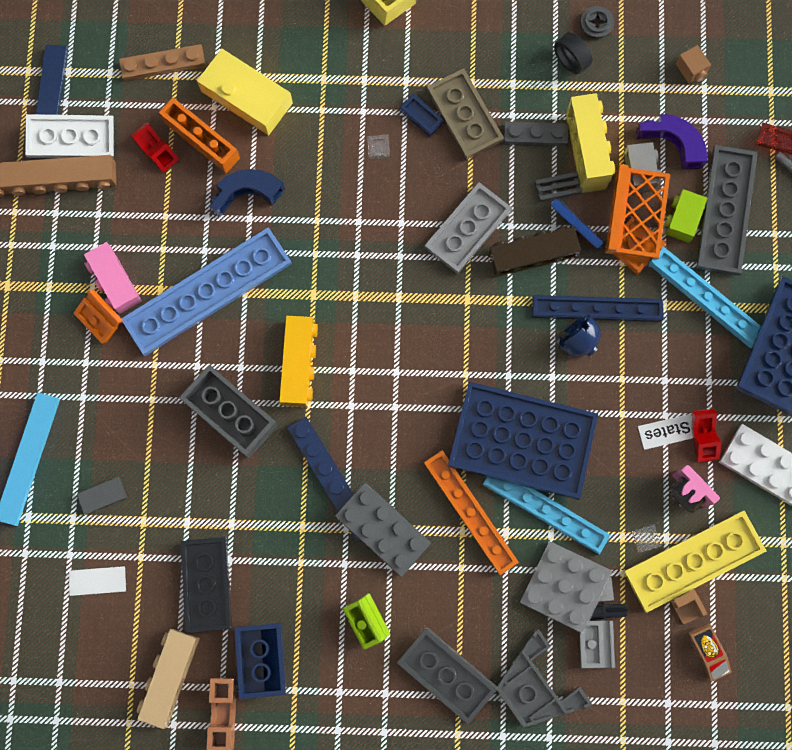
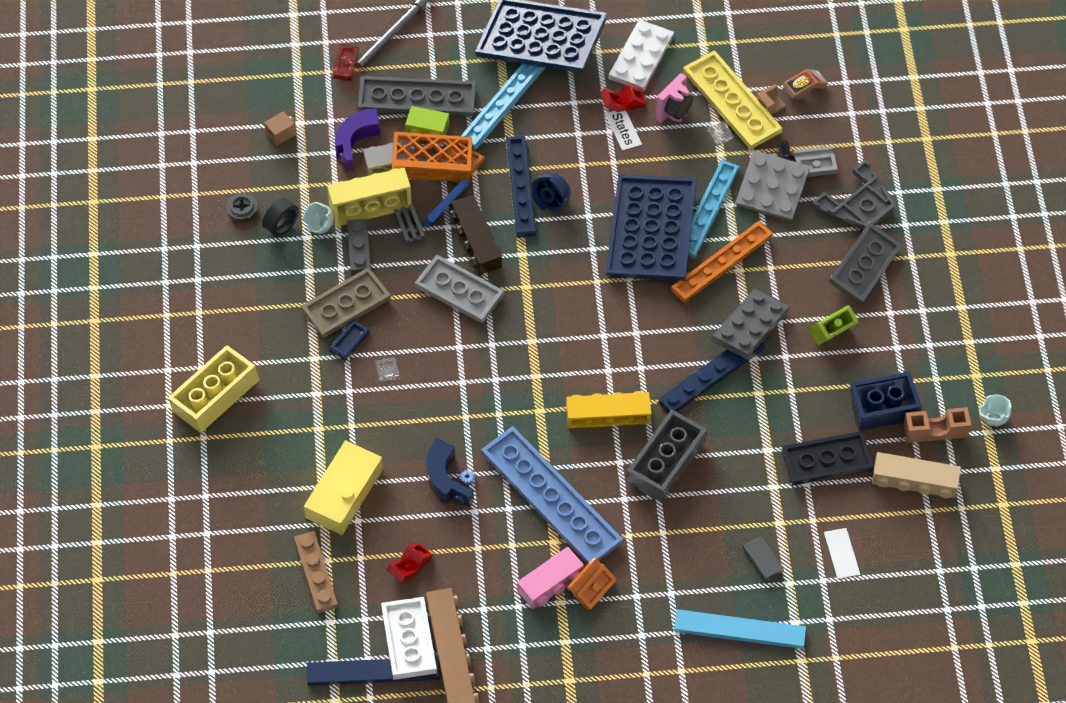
camera: 100 degrees left, 20 degrees down
(199, 135) = (395, 518): orange brick -> none
(244, 217) = (466, 480): none -> light blue piece
(564, 93) = (318, 217): none -> light aqua hair

